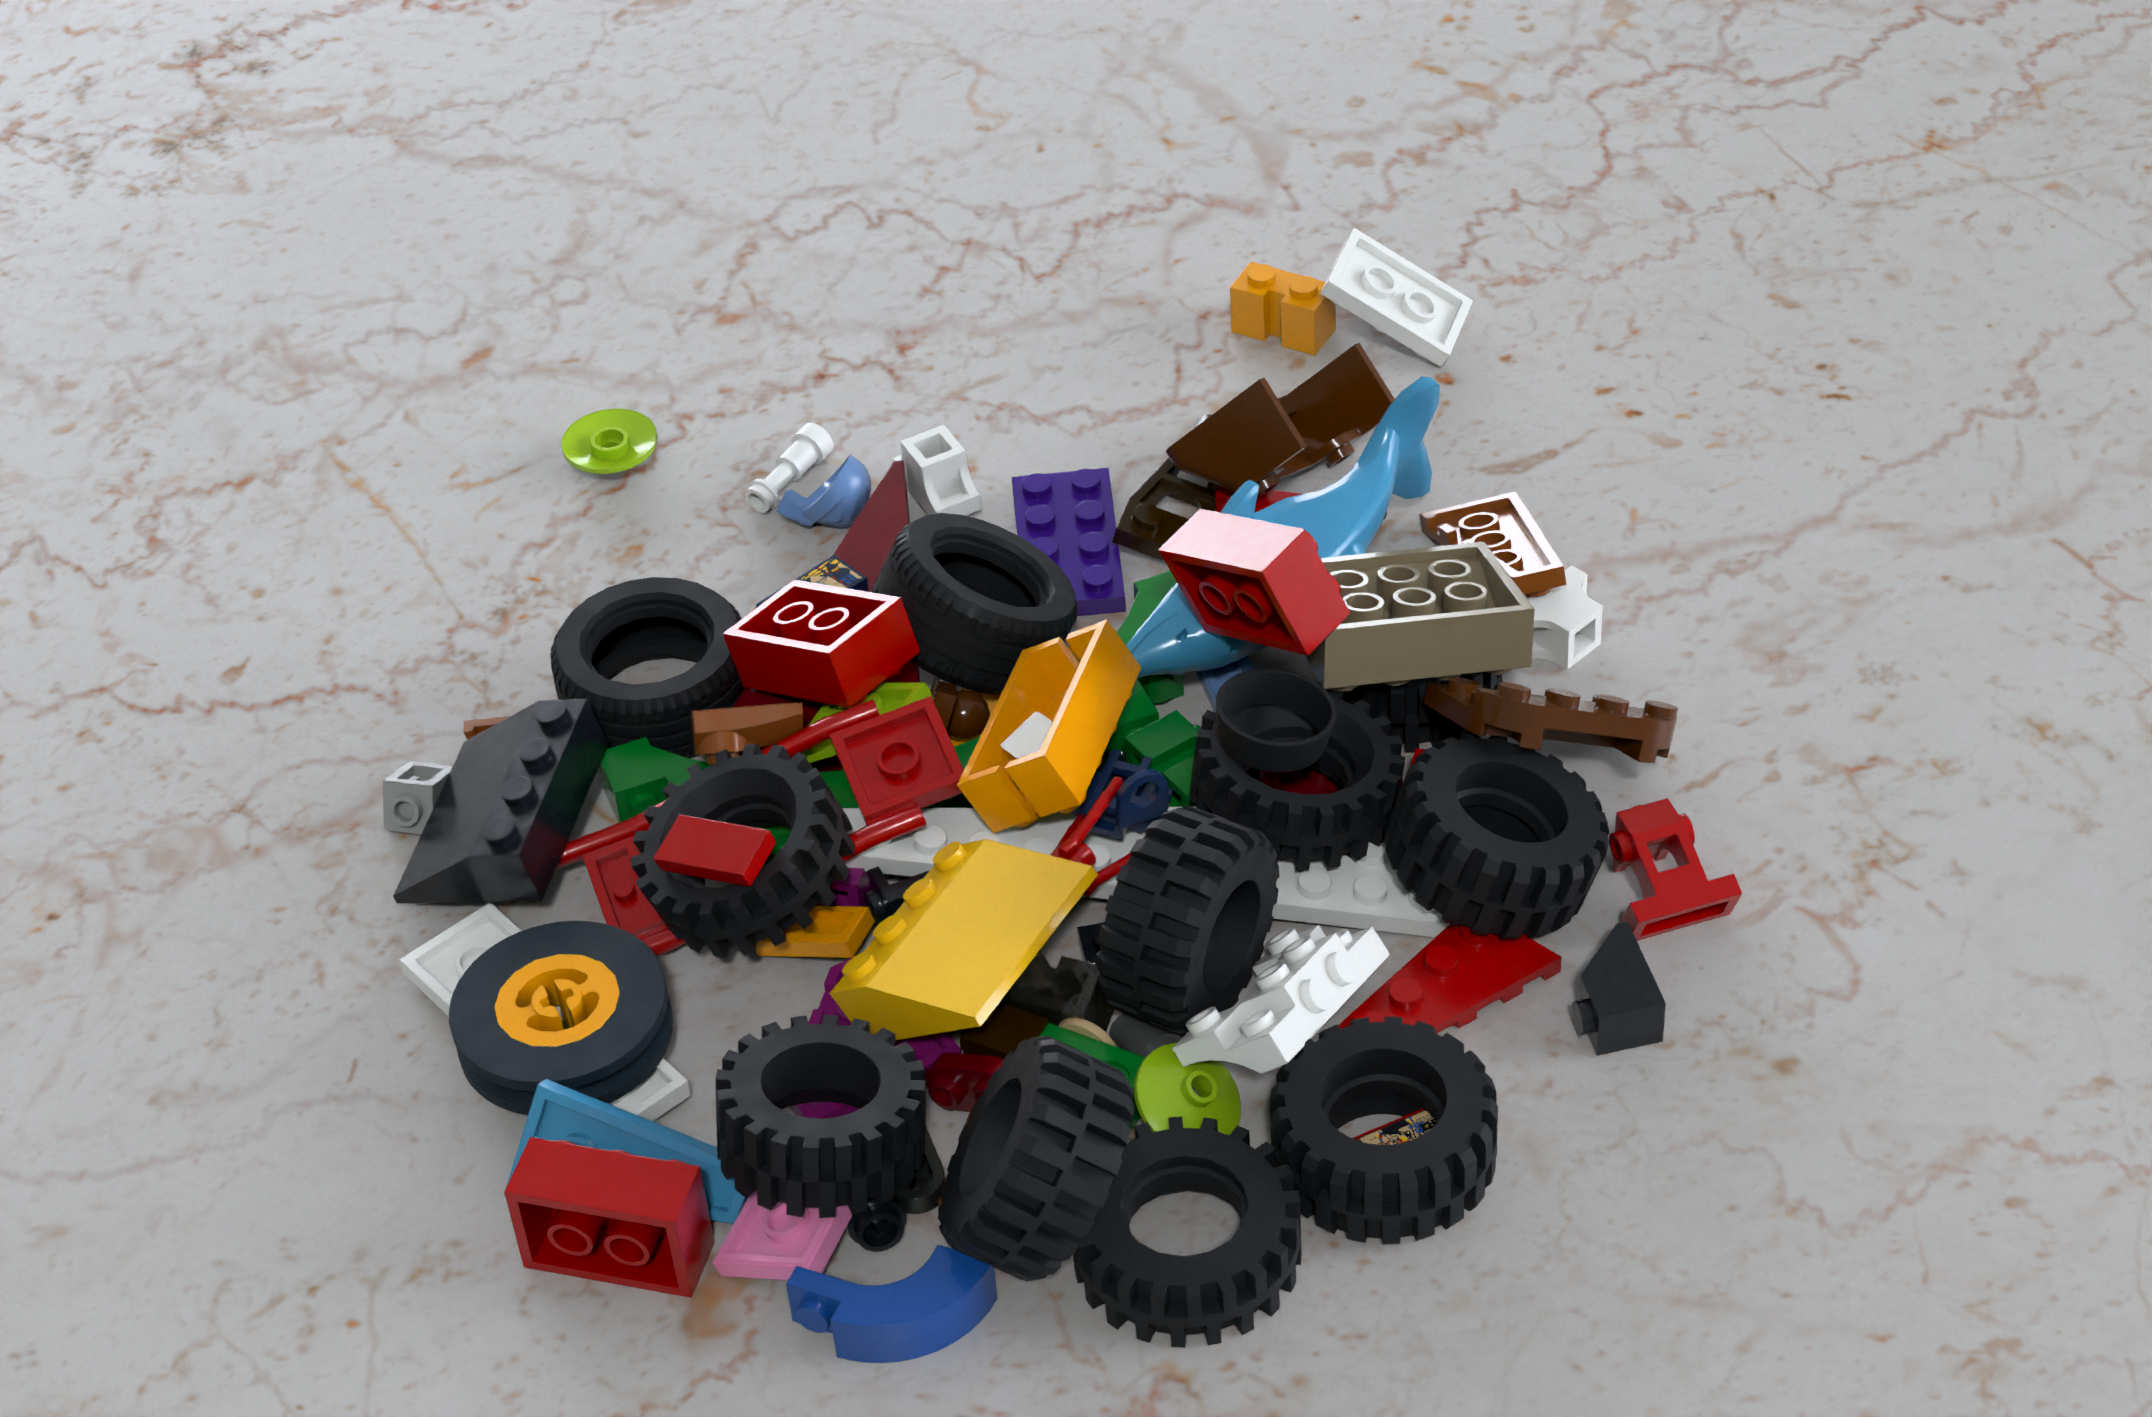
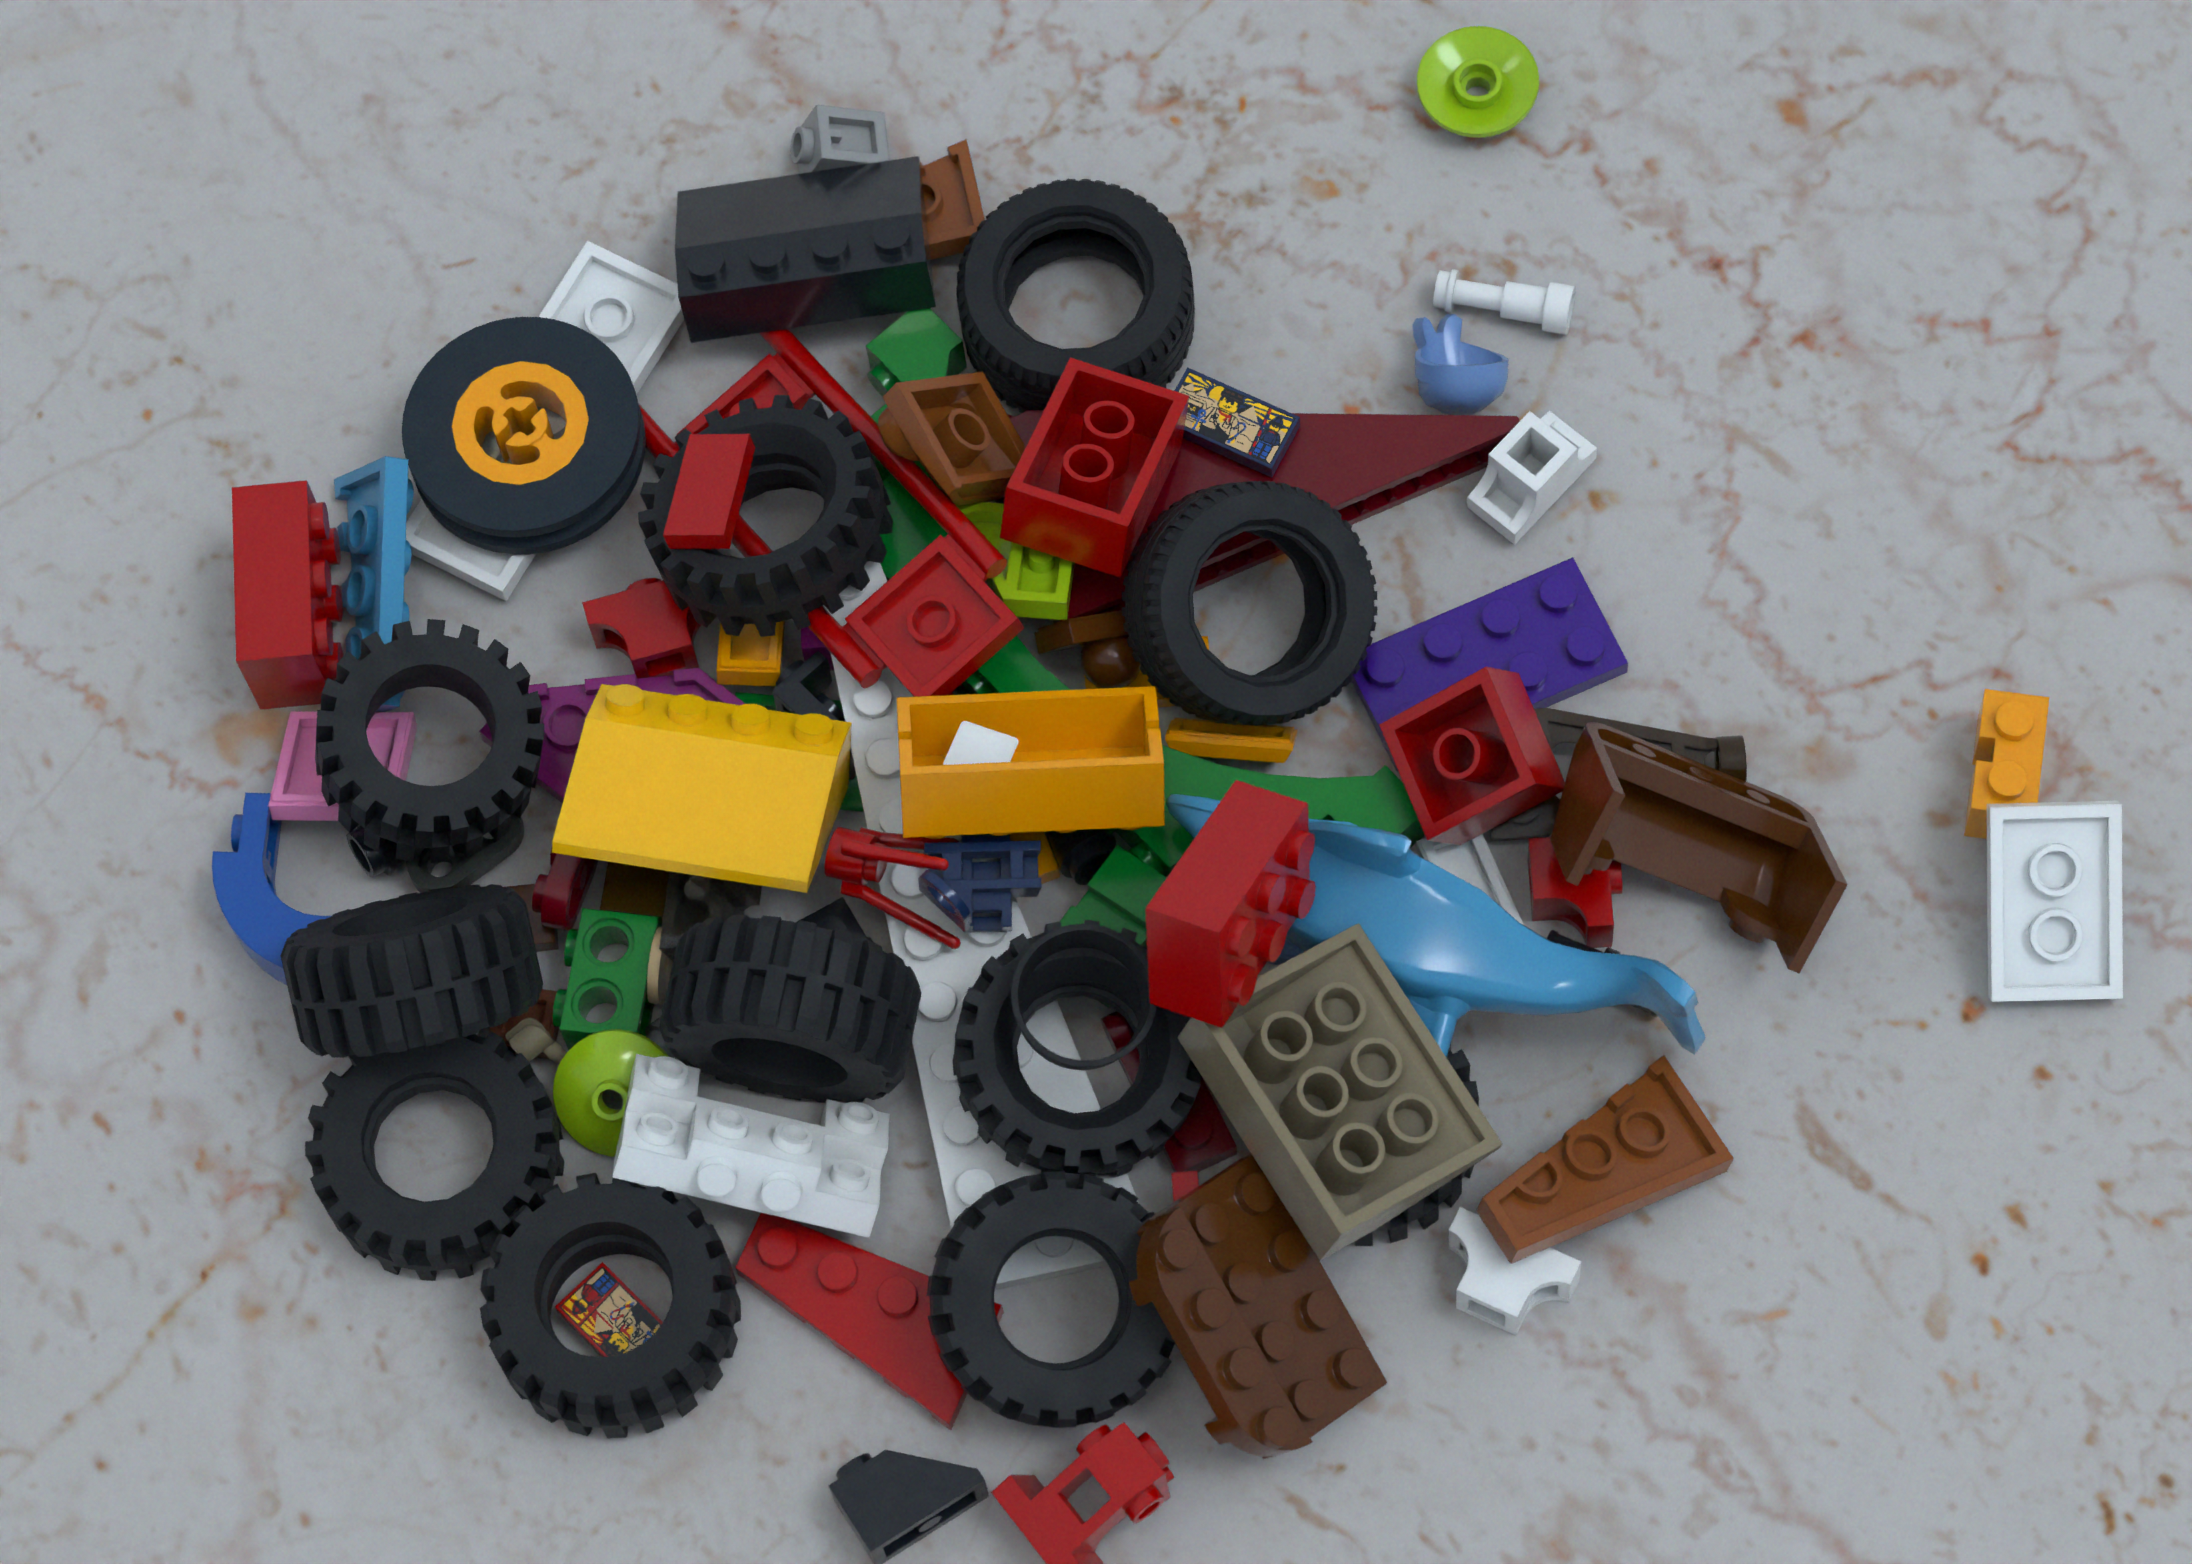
camera: 75 degrees right, 25 degrees up
(775, 988) = (645, 628): none -> red brick
(1147, 507) = (1473, 756): none -> red brick

